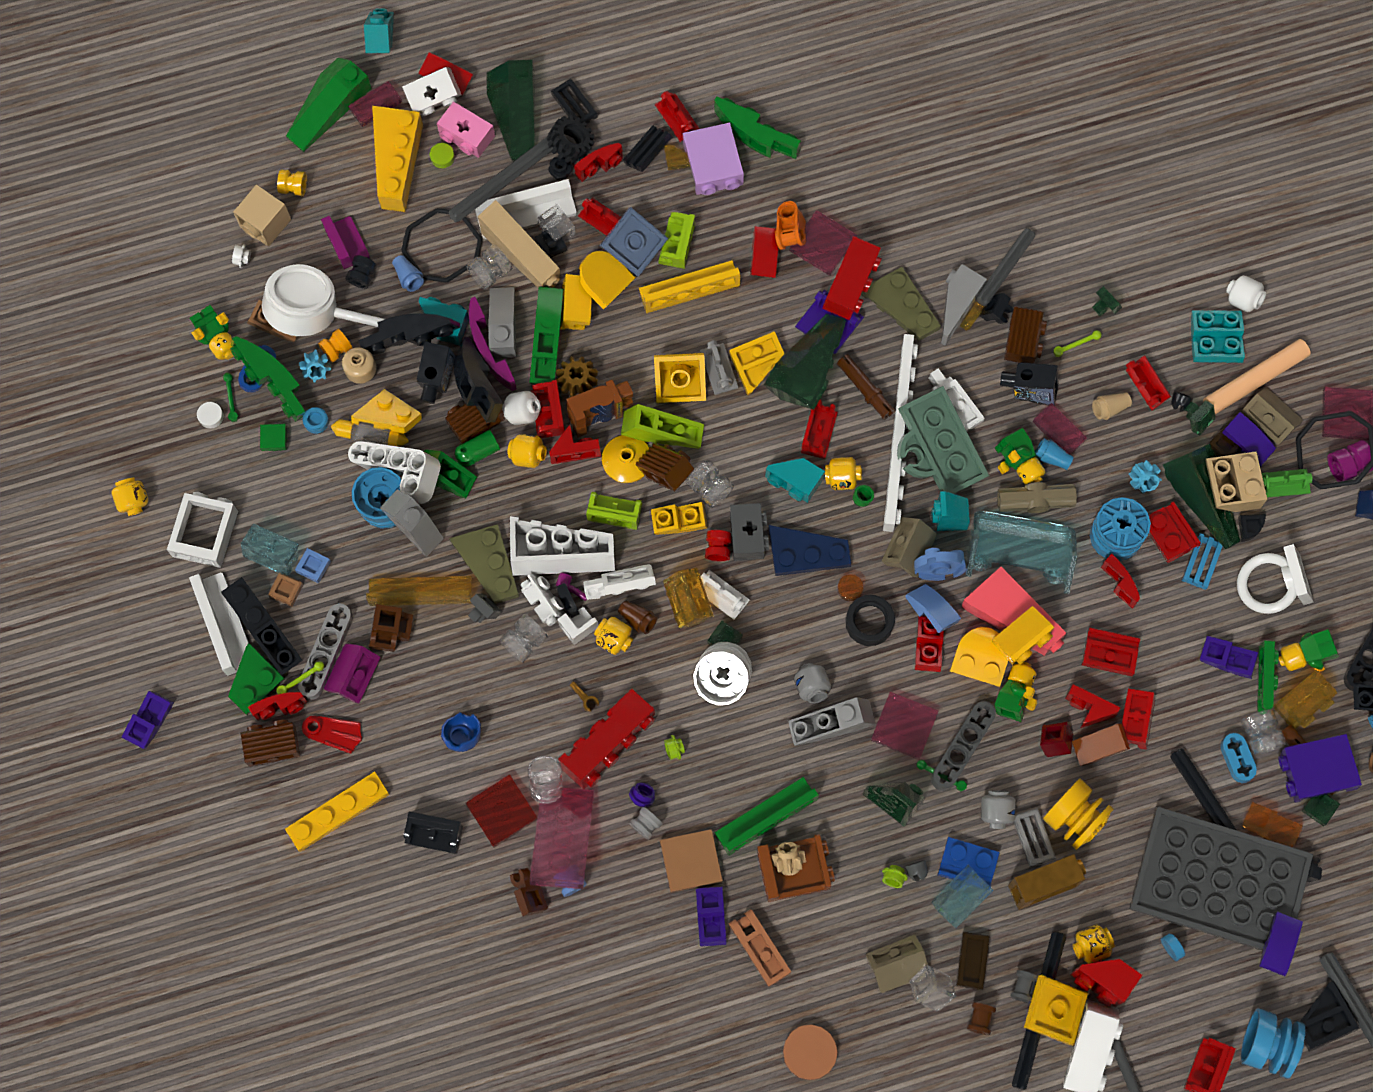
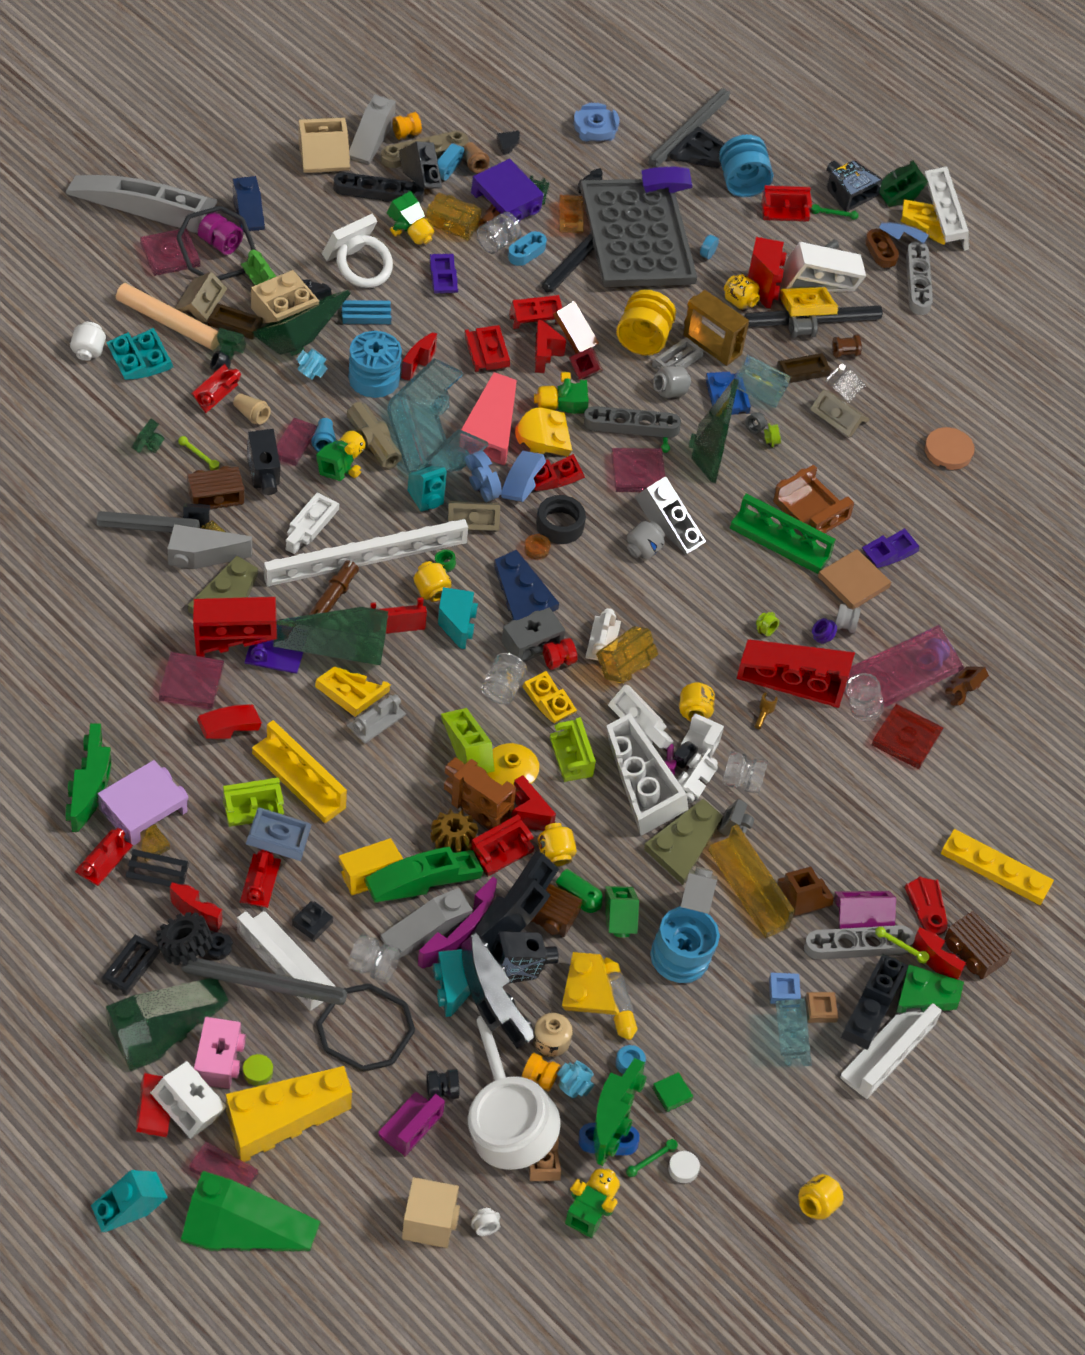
camera: 125 degrees left, 20 degrees down
(148, 720) = (1026, 1072): dark purple slope -> none
(198, 554) = (839, 1098): white window -> none
(292, 182) = (370, 1206): yellow wheel -> none
(408, 274) = (420, 1038): medium blue cone -> none
(417, 468) = (650, 941): white beam -> none
(432, 832) = (962, 778): black hinge -> none
(461, 732) = (863, 786): blue hair -> none
(518, 246) = (339, 936): tan slope -> none
(521, 408) = (512, 861): white head -> none
(556, 223) = (292, 912): clear panel -> none
(604, 277) = (334, 843): yellow tile -> none
(638, 617) = (666, 691): reddish brown cone -> none
(665, 466) = (510, 714): reddish brown brick -> none
(680, 377) = (405, 745): yellow slope -> none
(724, 633) = (643, 619): clear green tile -> none
(724, 687) = (684, 595): white wheel -> none
(760, 949) = (893, 505): nougat plate -> none
(788, 858) = (810, 502): tan gear -> none
(790, 226) = (195, 701): orange piece -> none
(939, 443) = (367, 509): sand green plate -> none
(1023, 635) = (522, 384): yellow slope -> none
(1172, 532) = (347, 330): red plate -> none
(1249, 438) = (232, 308): dark purple slope -> none
(1266, 679) = (448, 243): green hinge -> none

